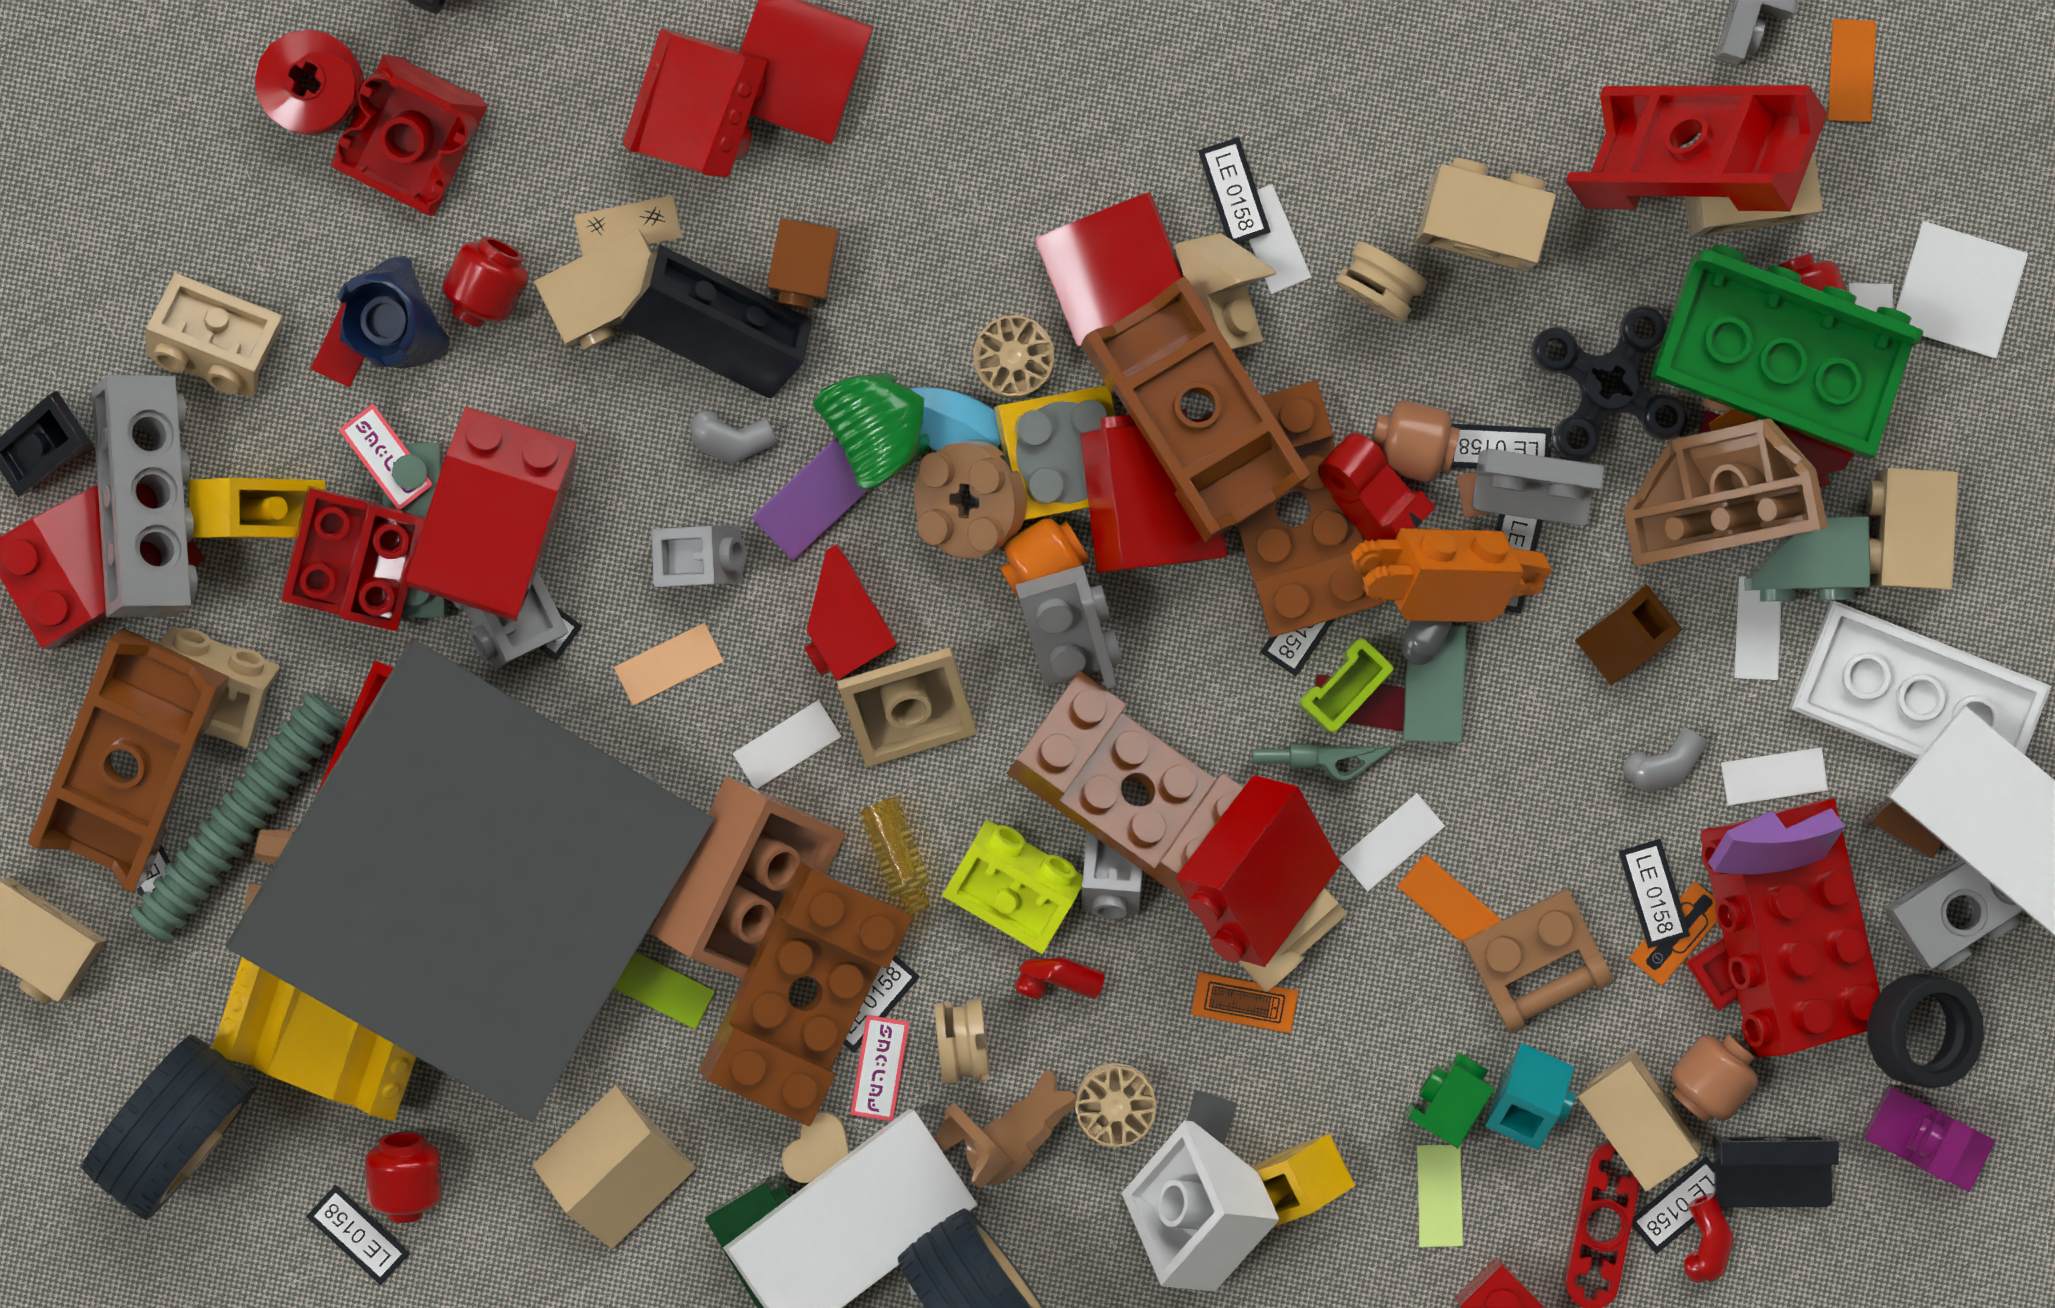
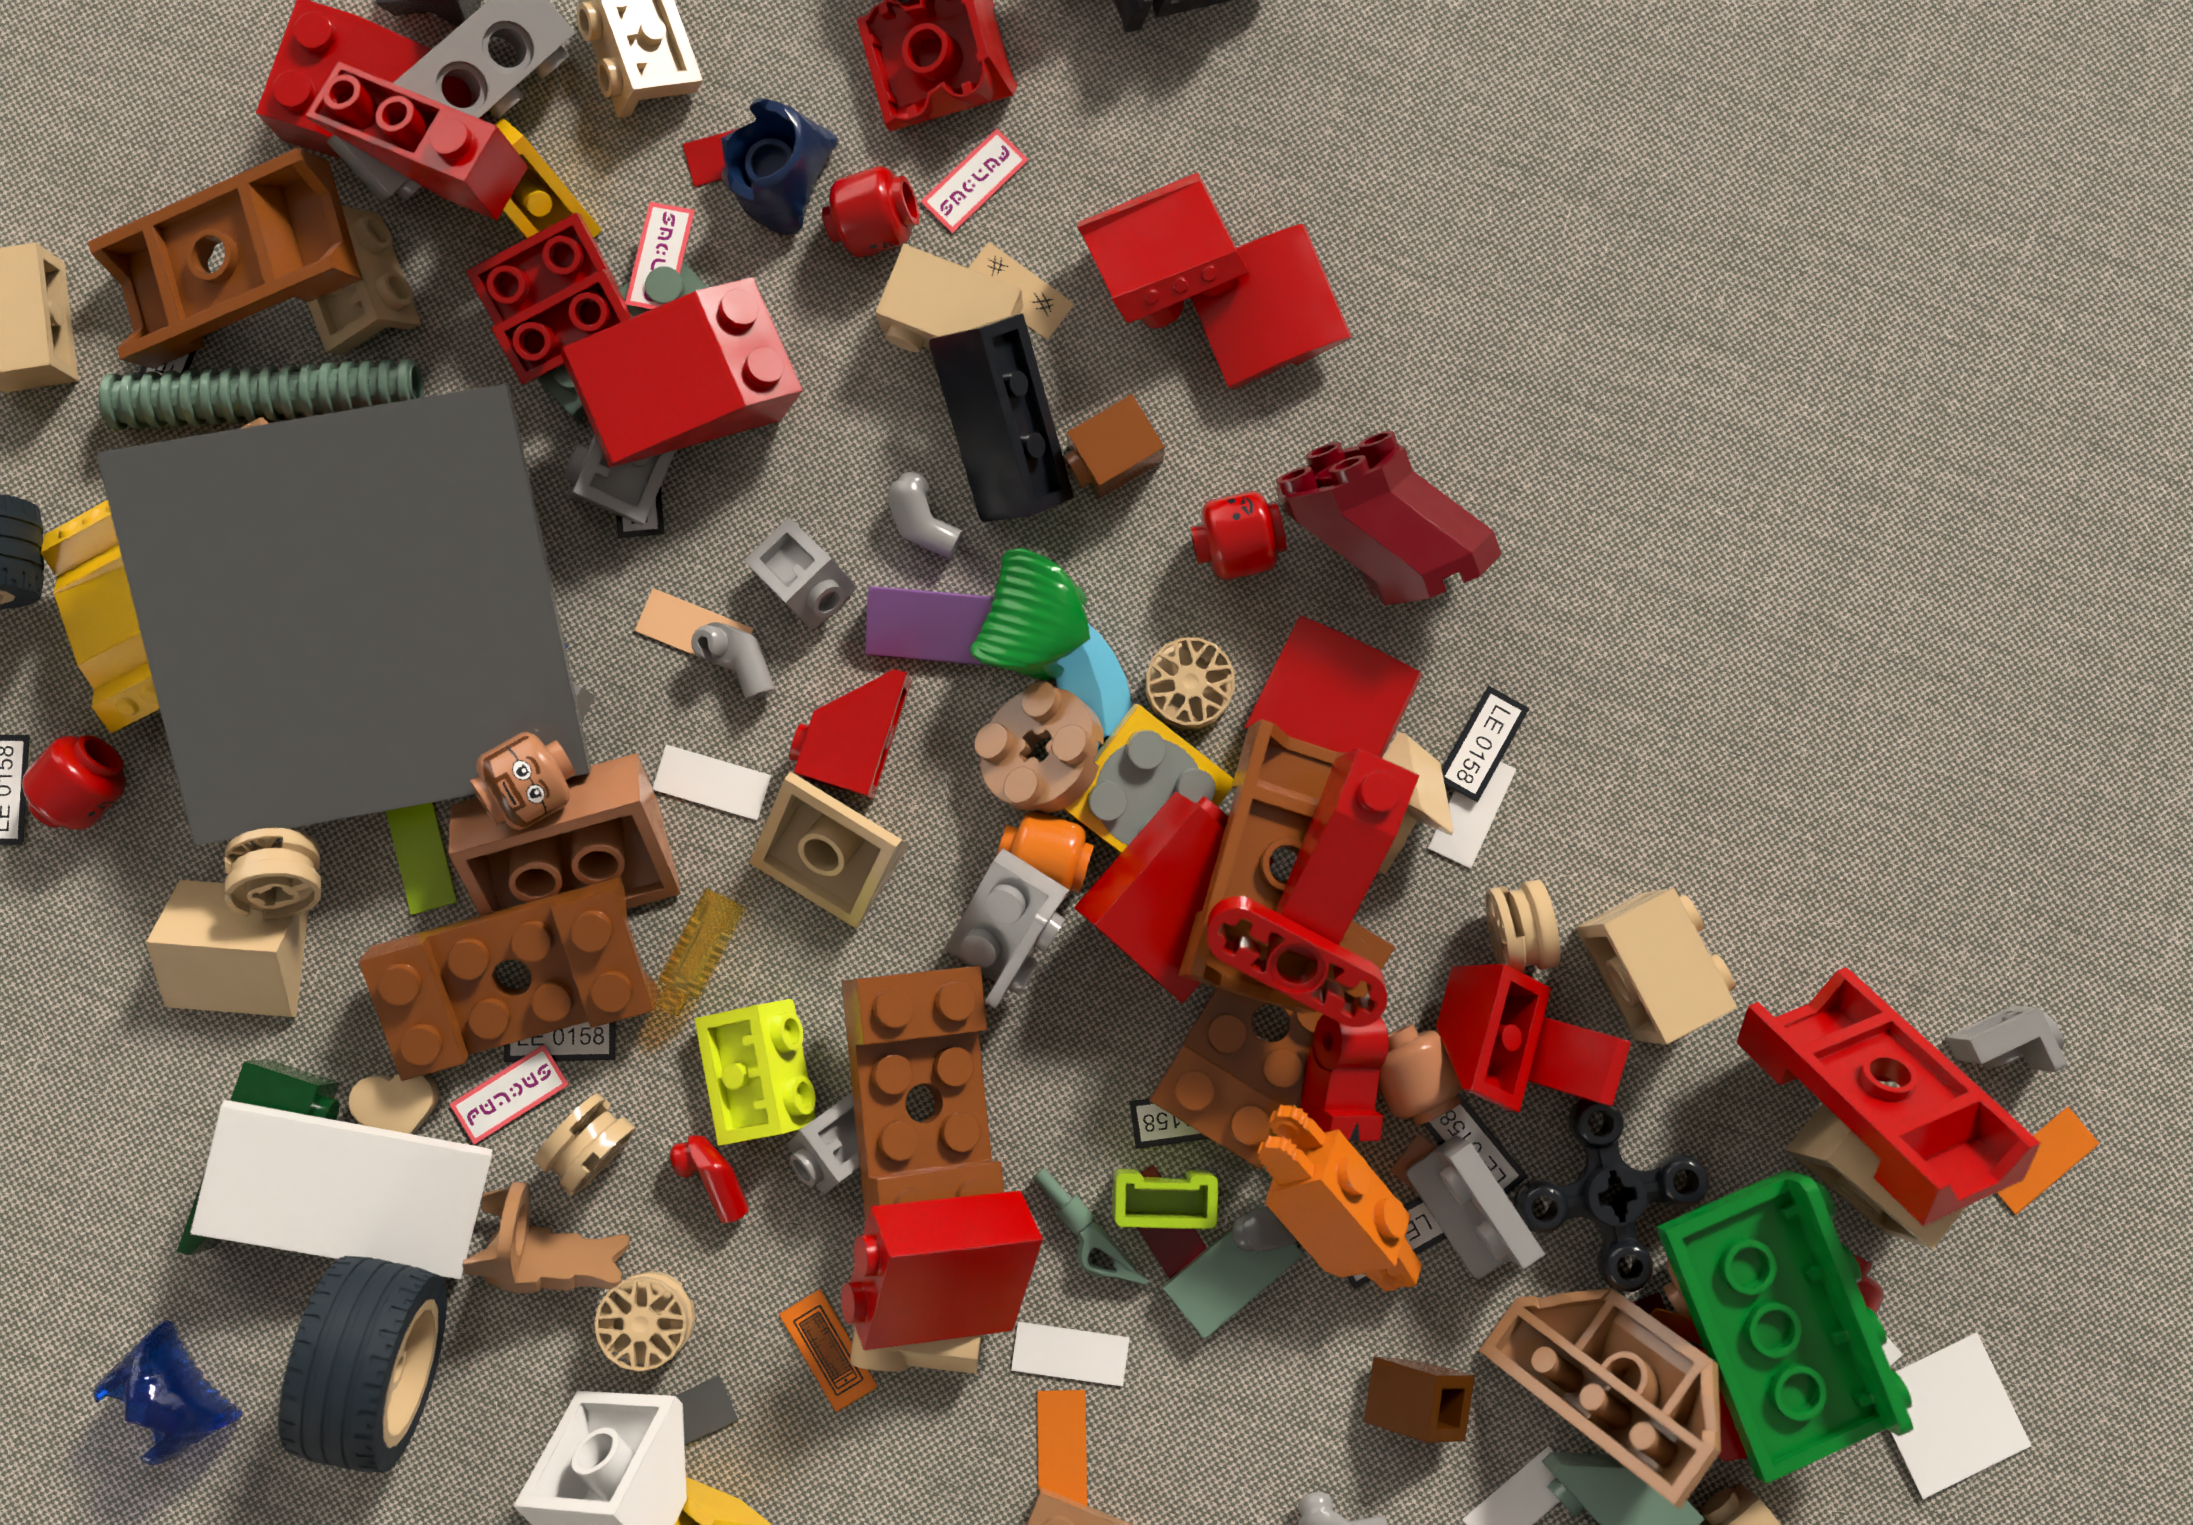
camera: 50 degrees right, 5 degrees down
(178, 551) = (421, 139): none -> red slope
(521, 186) = (974, 180): none -> white sticker
(595, 1090) = (273, 875): none -> tan wheel
(685, 864) = (522, 780): none -> nougat head
(713, 647) = (735, 651): none -> light grey arm
(942, 231) = (1239, 535): none -> red head
(1022, 122) = (1386, 519): none -> dark red brick
(1222, 365) = (1345, 844): none -> red slope
(1300, 427) = (1348, 967): none -> red beam
(1429, 365) = (1492, 1029): none -> red slope
(1492, 333) = (1578, 1061): none -> red slope

